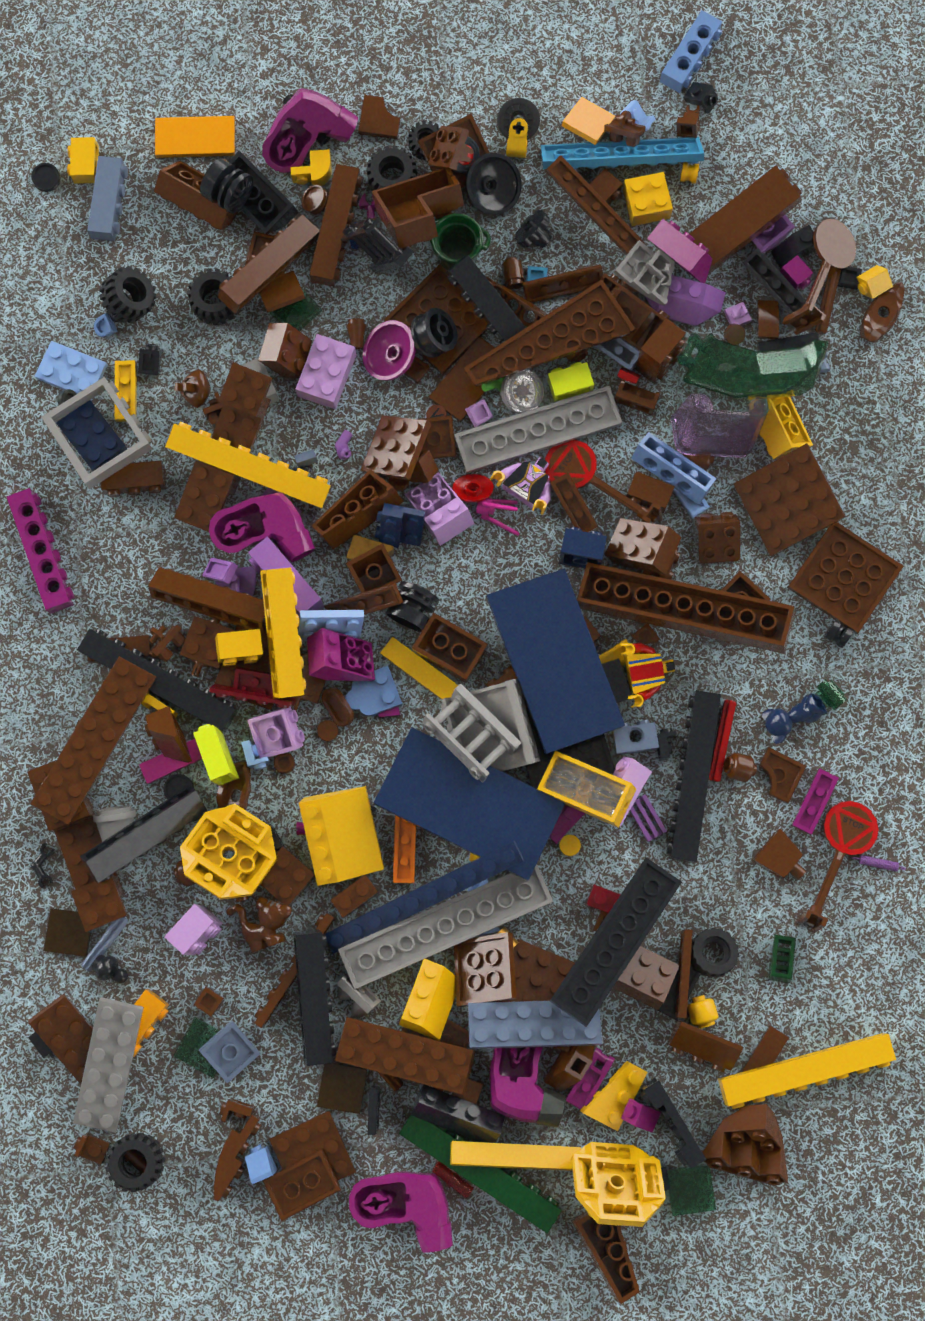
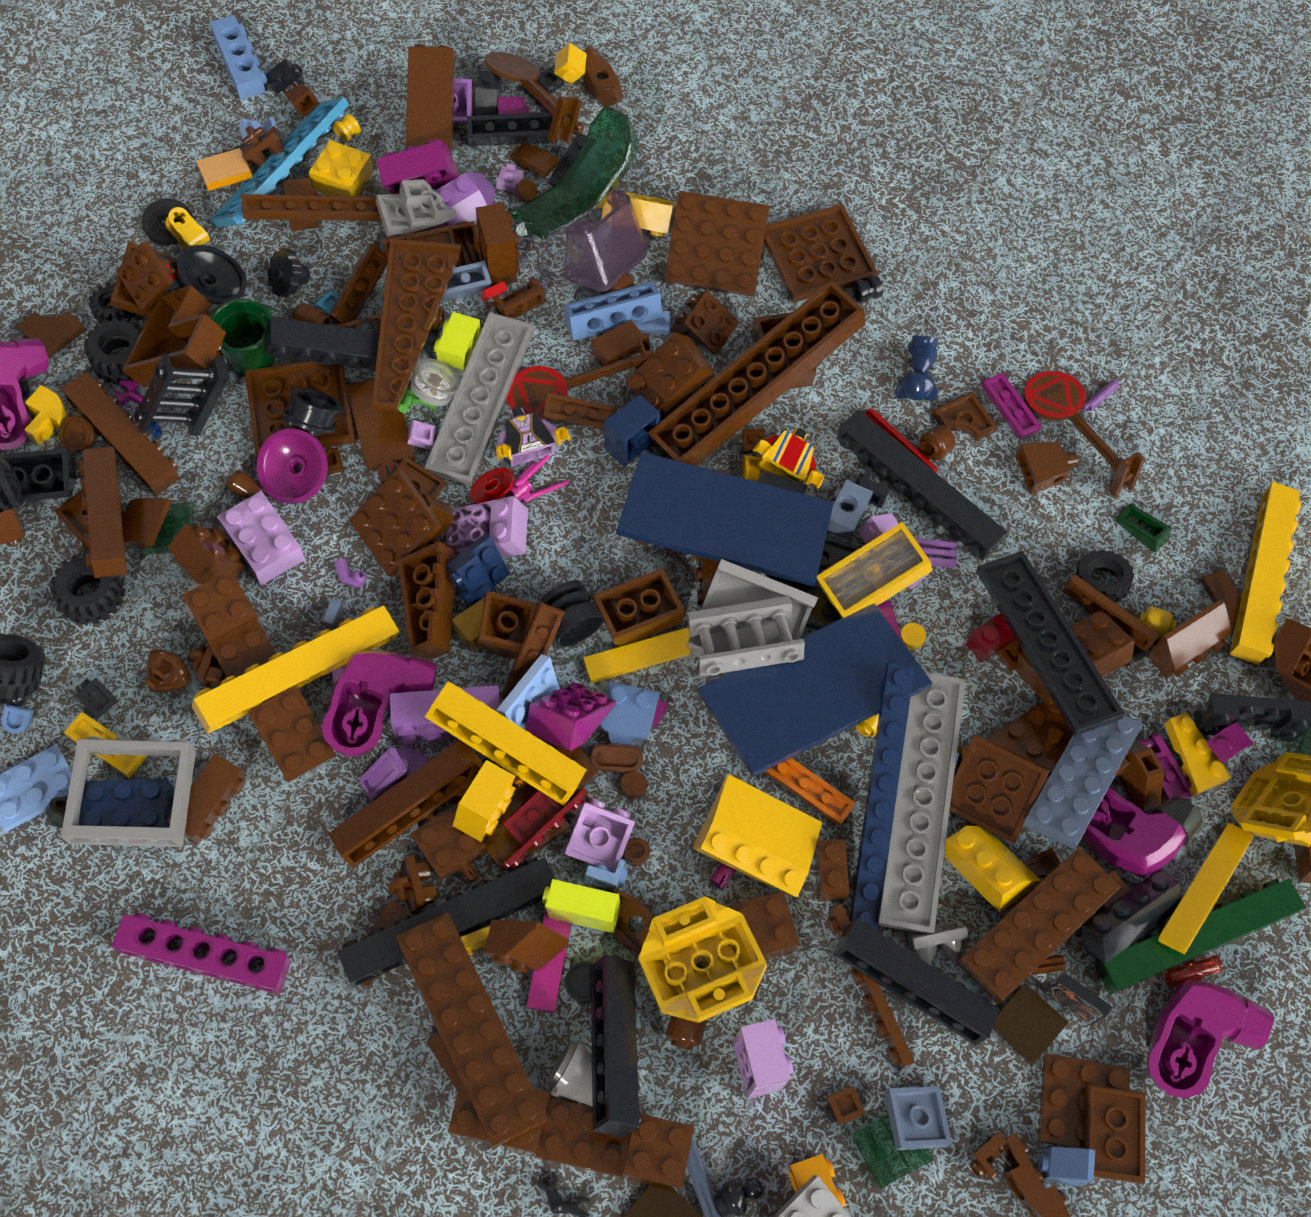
camera: 65 degrees left, 15 degrees down
(271, 917) = (798, 969): reddish brown animal -> none
(830, 694) = (919, 327): clear green brick -> none

